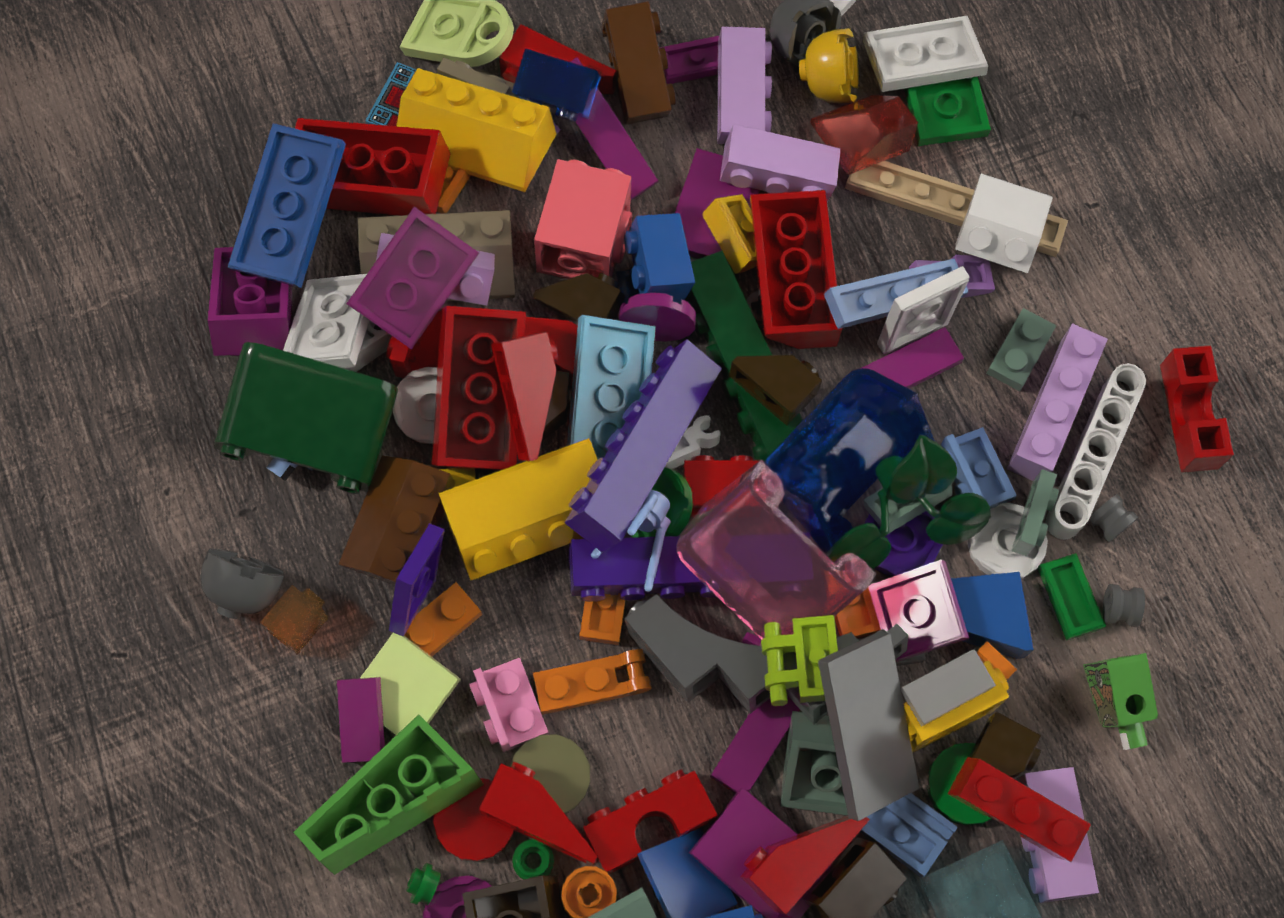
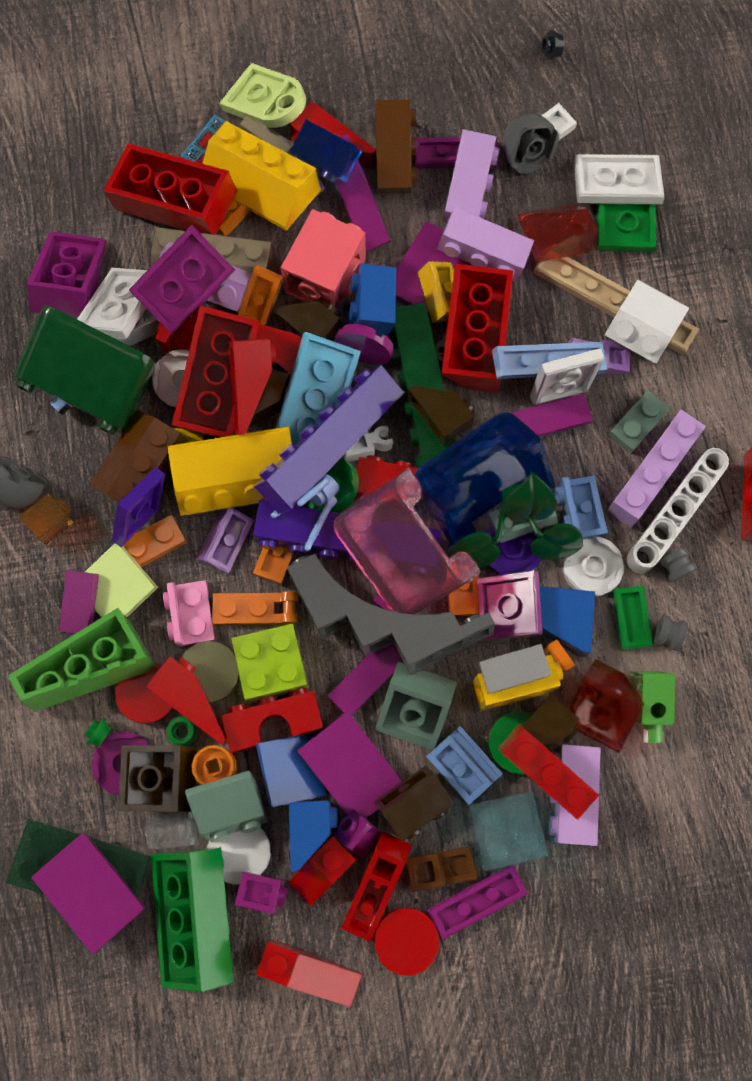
camera: 15 degrees right, 5 degrees up
(287, 205) = (104, 207): blue tile -> none
(511, 277) = (260, 294): none -> orange plate
(531, 600) = (225, 539): none -> medium lavender slope
(629, 747) = (269, 663): none -> lime brick
(792, 865) = (373, 774): red slope -> none
(811, 641) = (419, 626): lime plate -> none
(831, 67) = (543, 176): yellow cylinder -> none
(868, 725) = (447, 684): dark grey tile -> none
(1040, 498) = (625, 539): sand green plate -> none
(1069, 713) = (606, 706): none -> clear red slope

